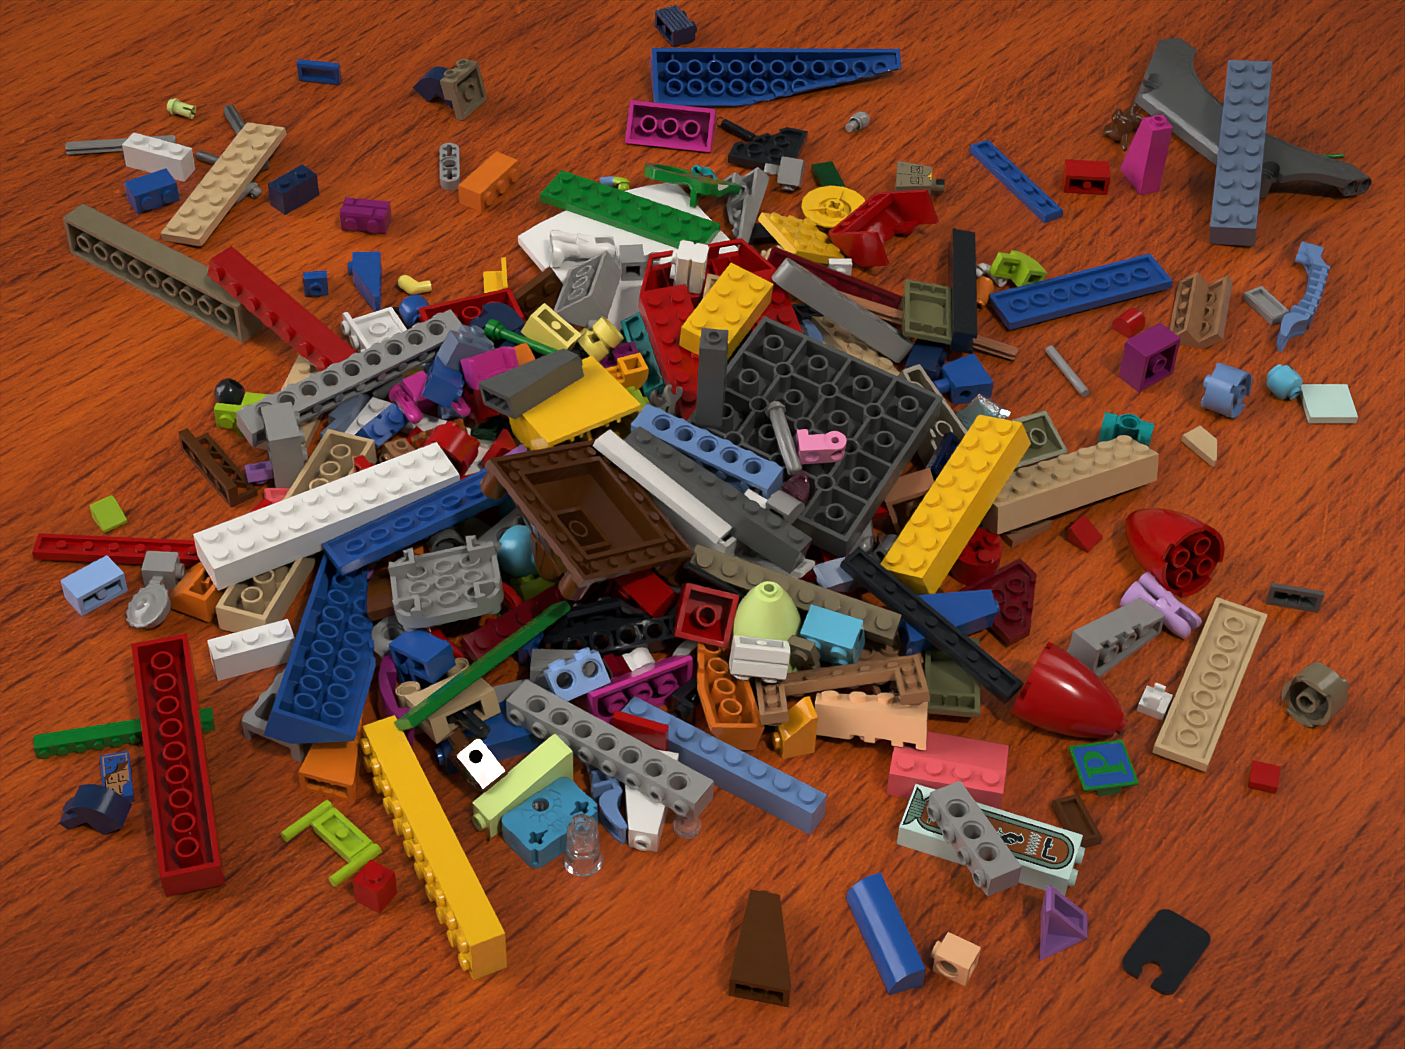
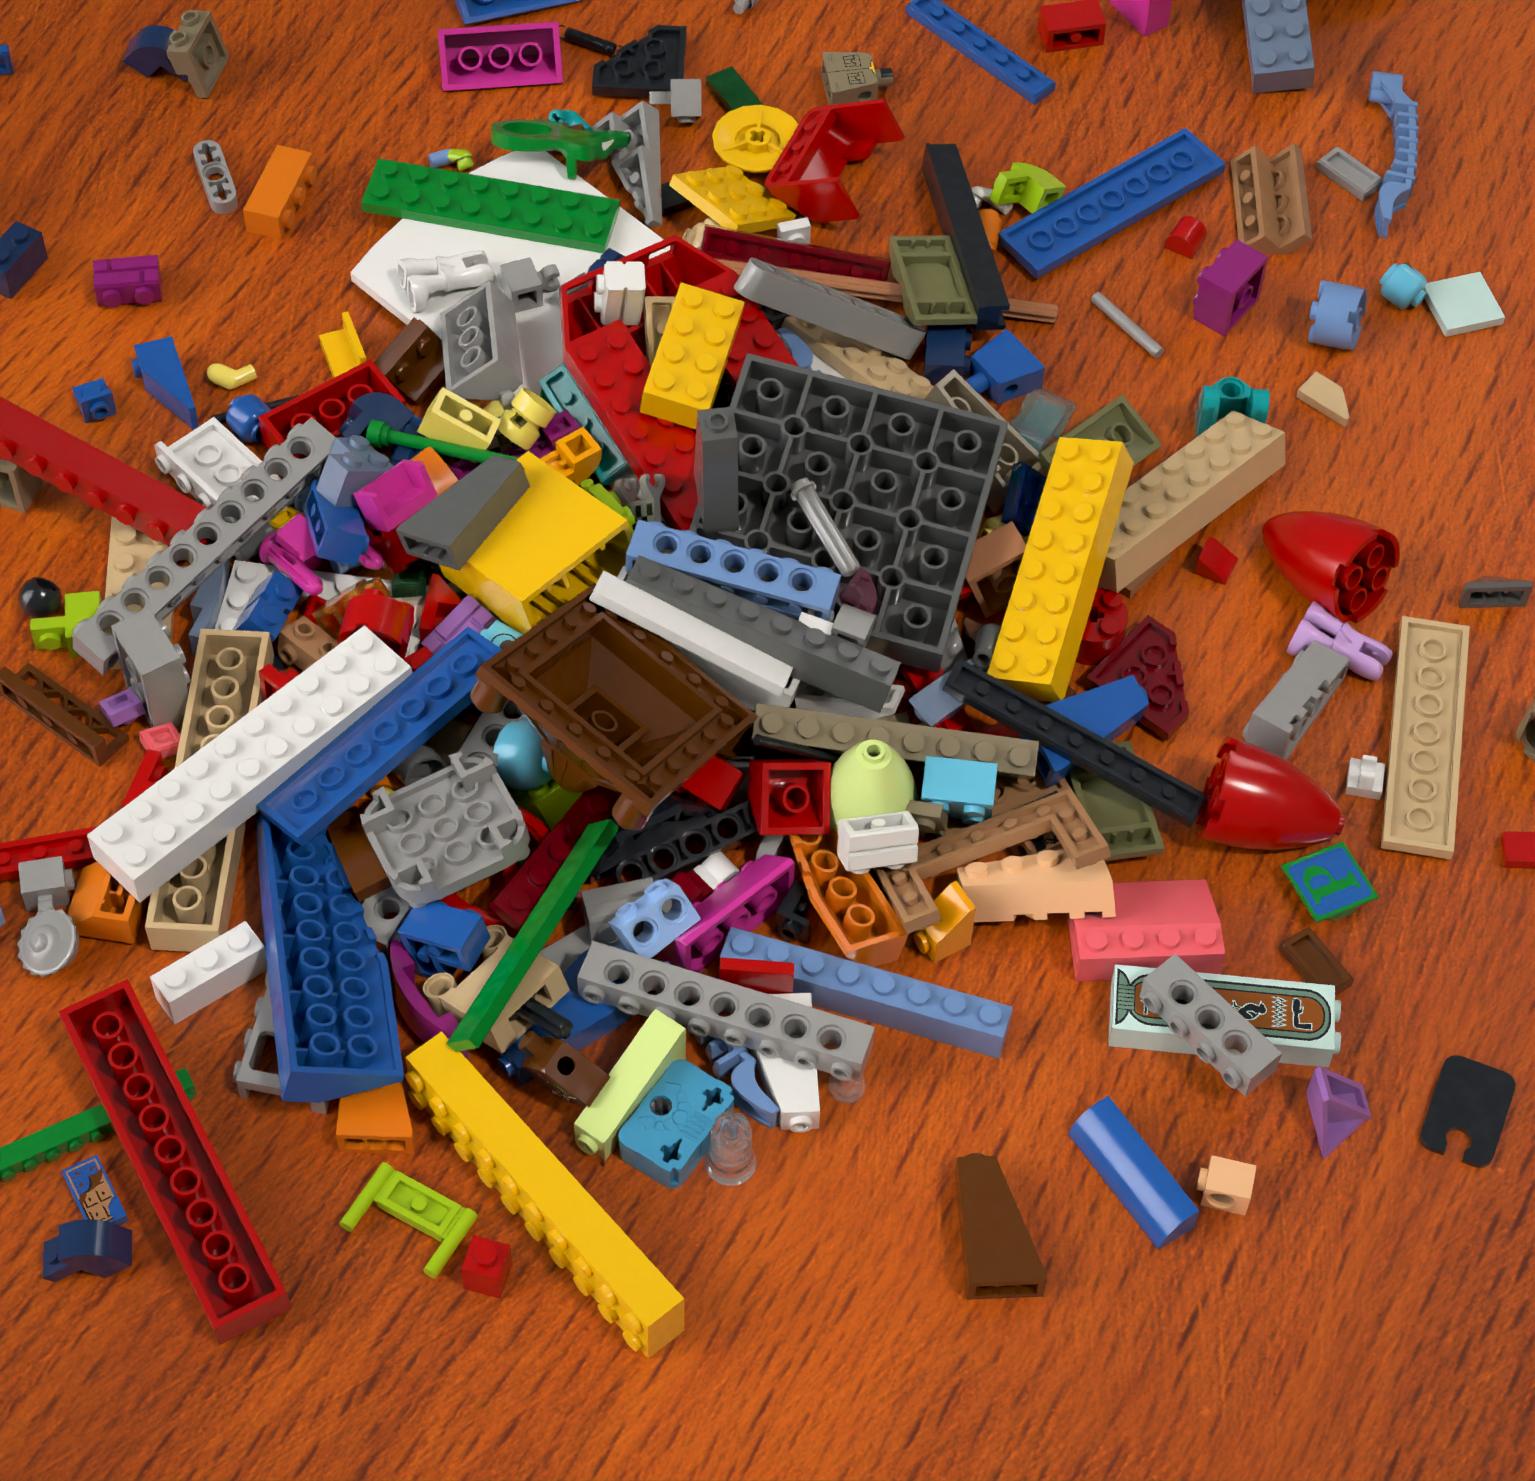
camera: 15 degrees left, 10 degrees up
(820, 447) = (874, 531): bright pink leg -> none

